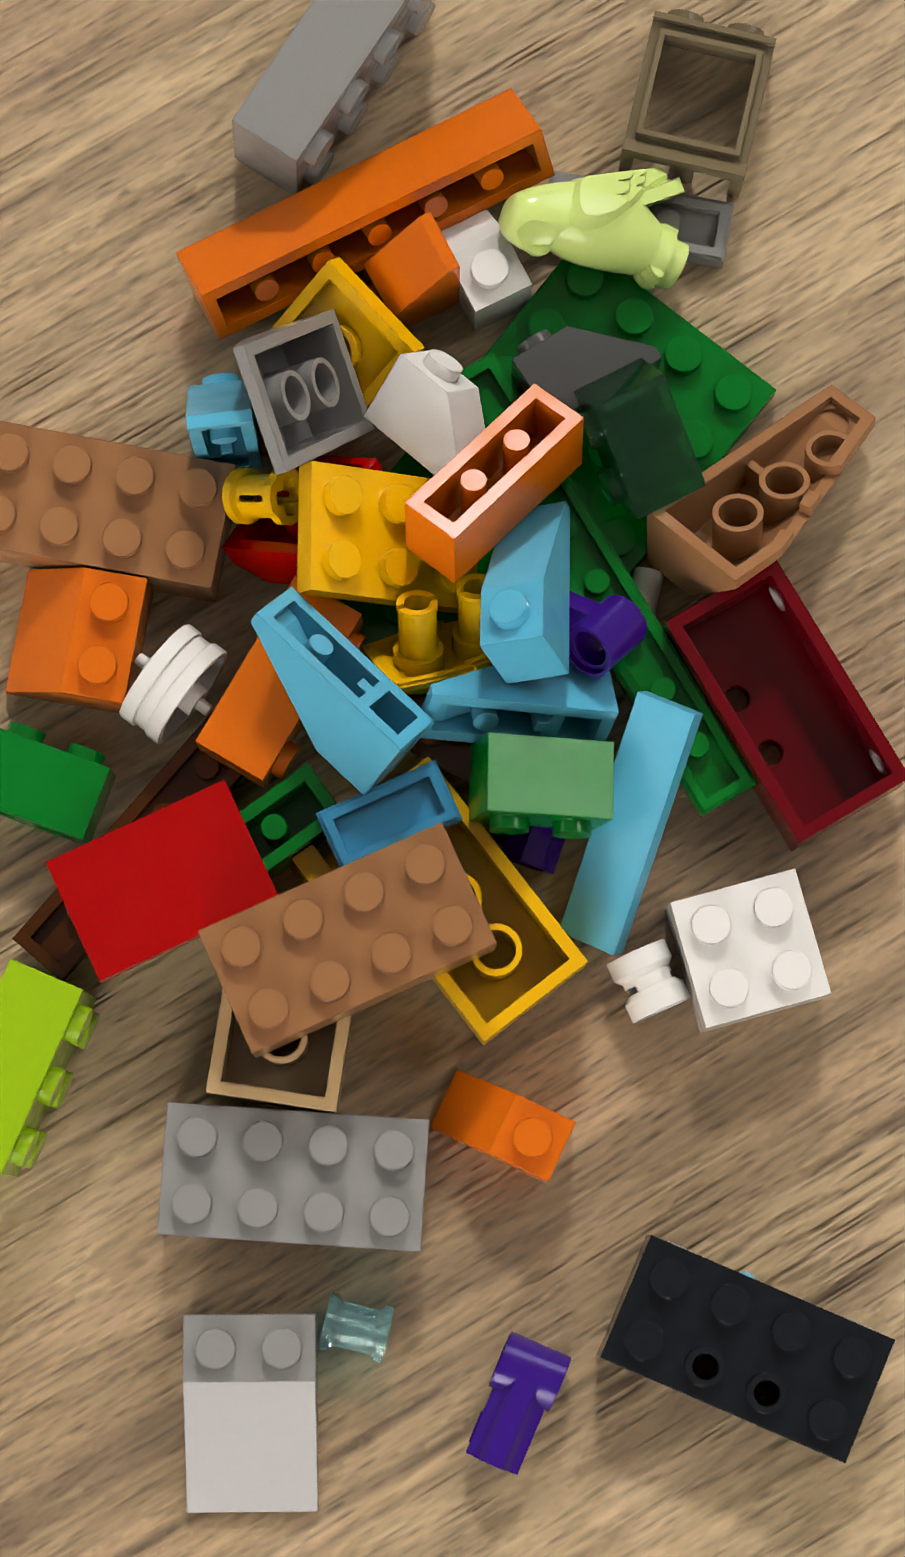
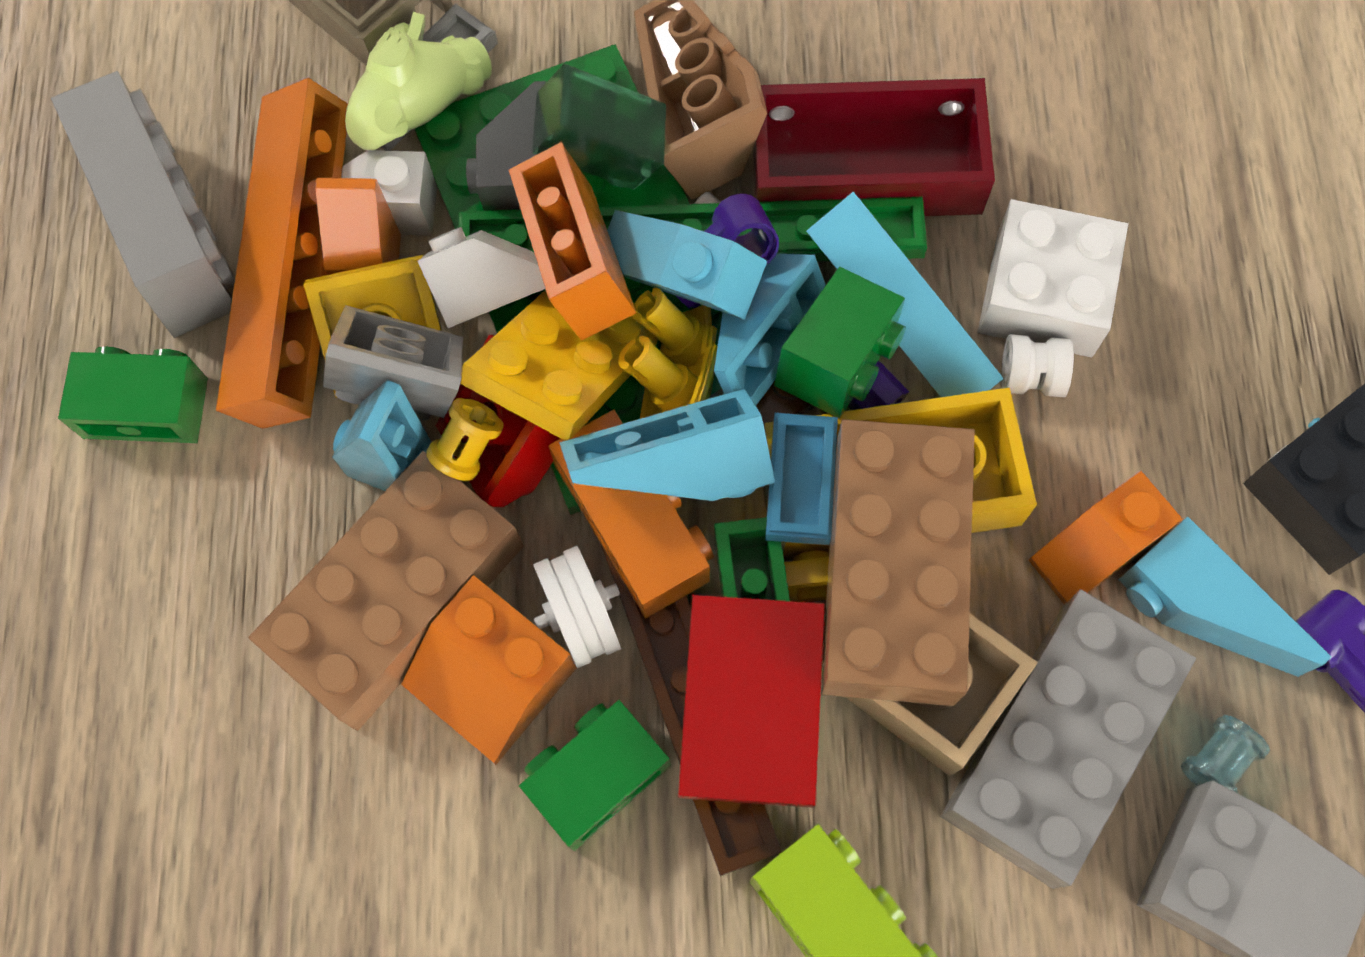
camera: 55 degrees left, 10 degrees down
(152, 165) = (133, 396): none -> green brick
(500, 1240) = (1208, 596): none -> medium azure slope

